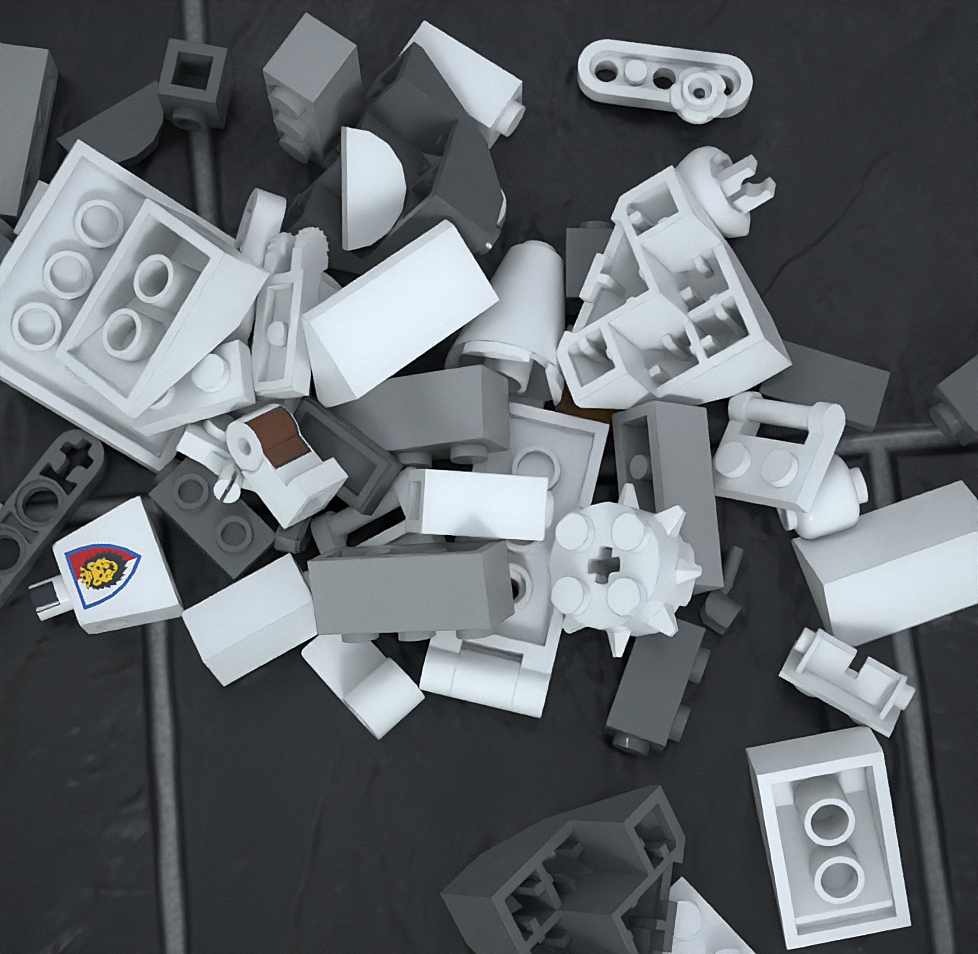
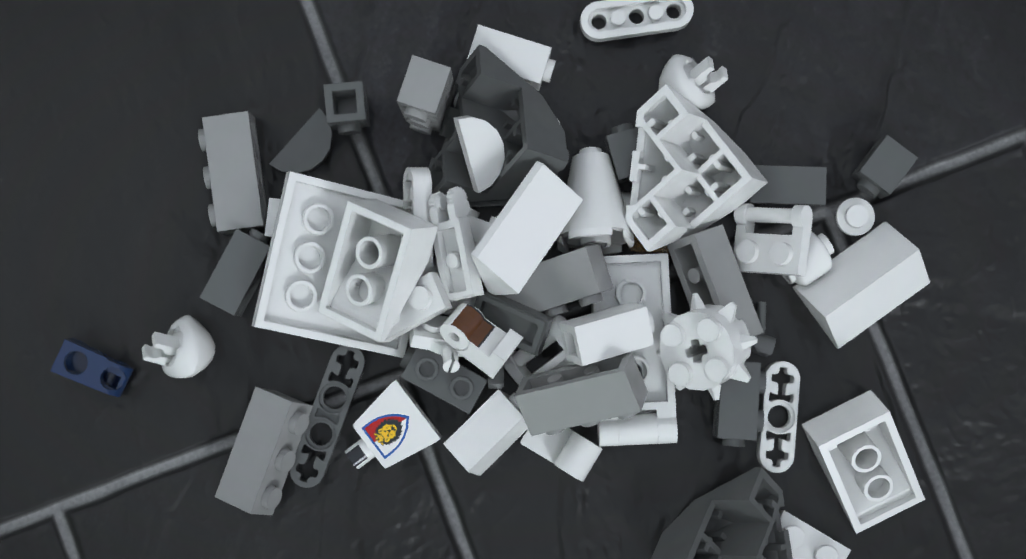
camera: 20 degrees left, 10 degrees up
(694, 109) = (661, 34): white plate -> none
(743, 691) = (767, 444): none -> white beam
(821, 670) = (837, 365): white hinge -> none
(915, 459) = (855, 216): none -> white plate

